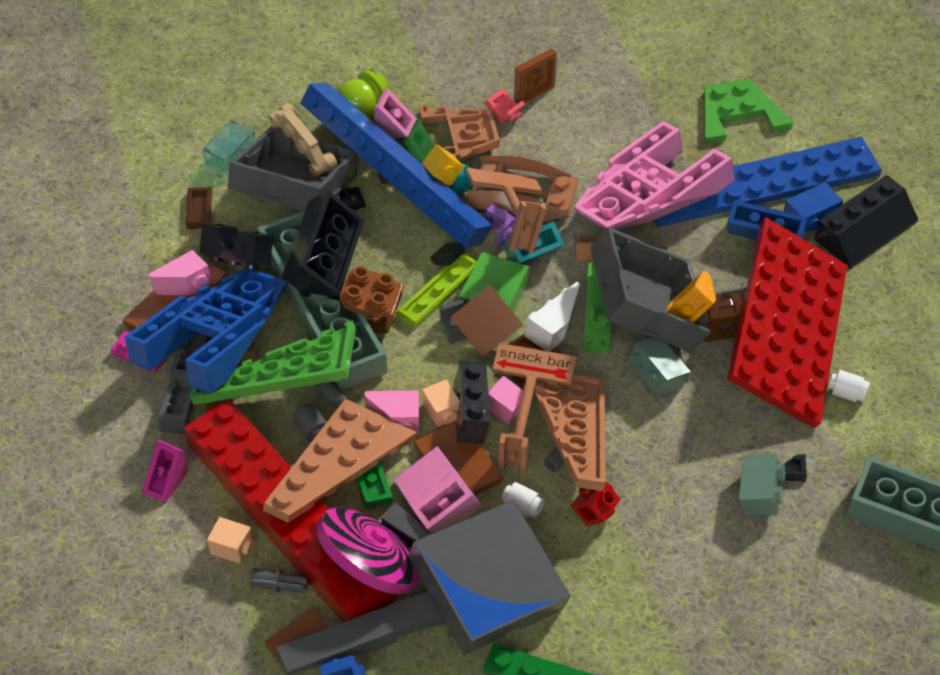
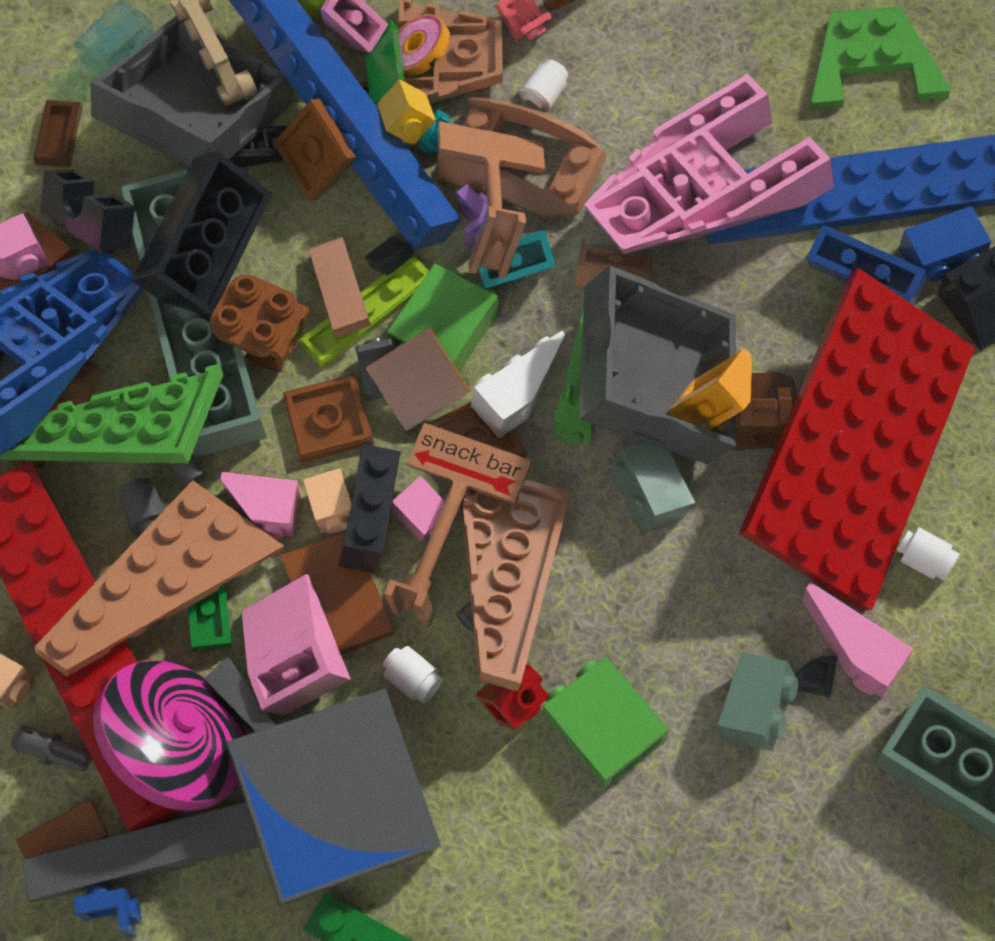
camera: 15 degrees right, 15 degrees up
(384, 194) = (314, 149): none -> dark orange tile
(418, 275) = (339, 287): none -> nougat tile
(426, 356) = (328, 418): none -> dark orange tile
(442, 126) = (421, 42): none -> tile
(528, 144) = (544, 86): none -> white brick
(661, 512) = (604, 721): none -> bright green brick
(823, 446) = (862, 647): none -> bright pink slope

